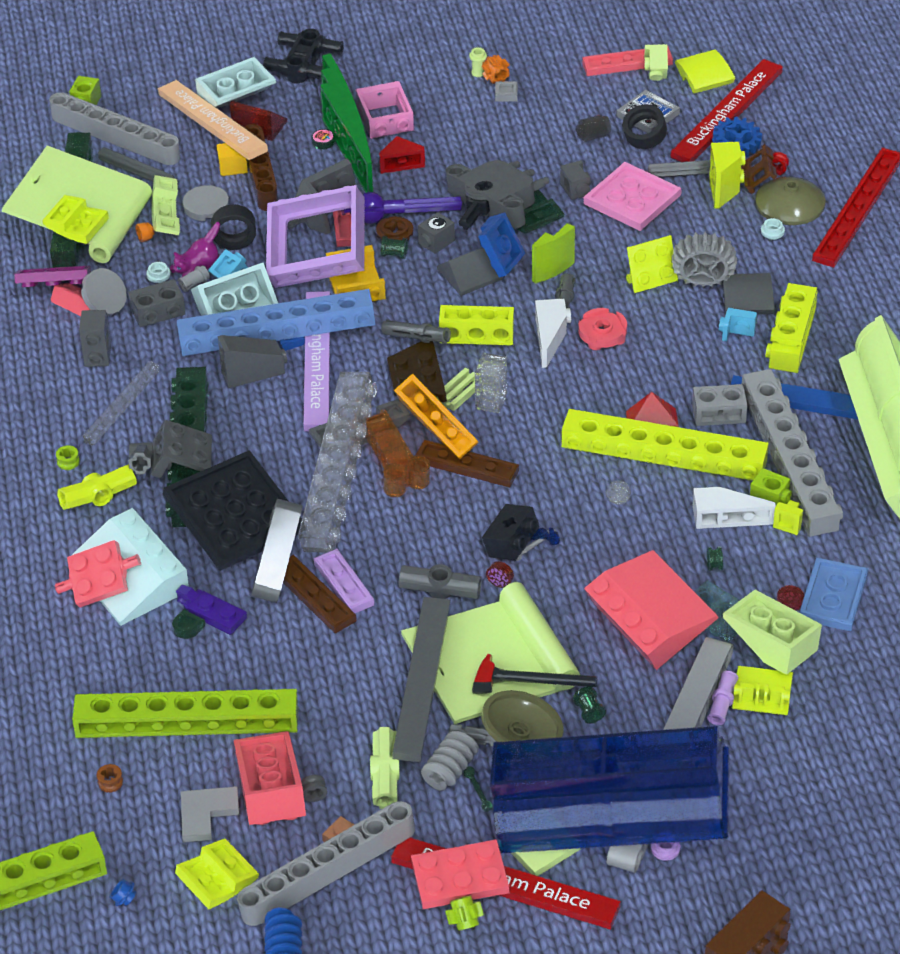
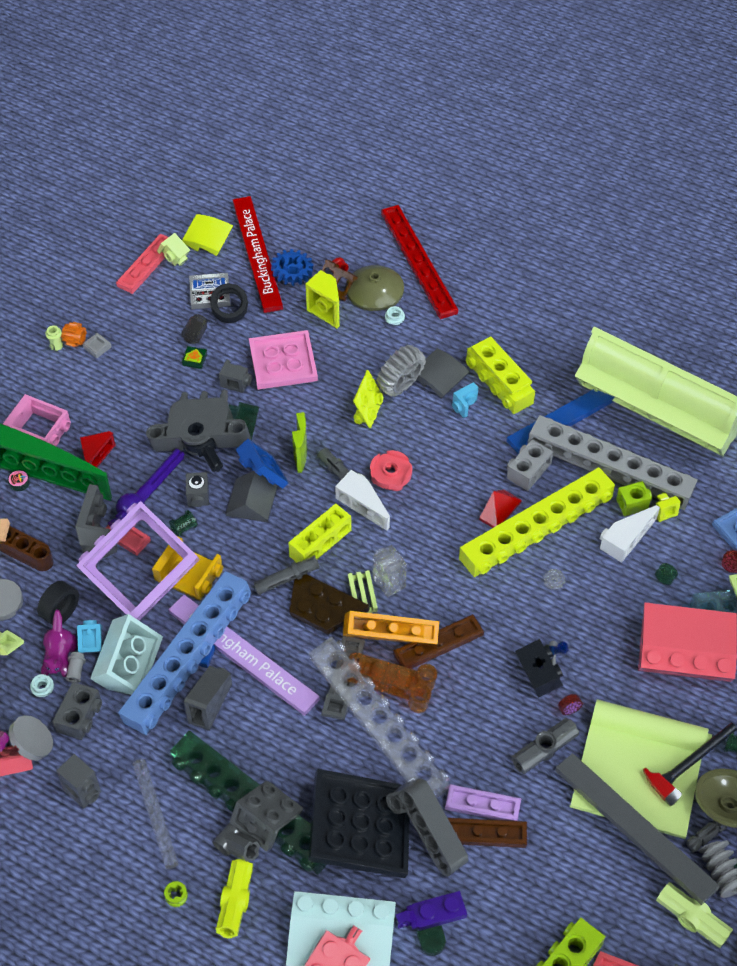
camera: 50 degrees left, 10 degrees up
(388, 225) = (167, 503): reddish brown gear -> none
(567, 149) = (194, 357): none -> tile
(680, 168) = (286, 314): axle -> none

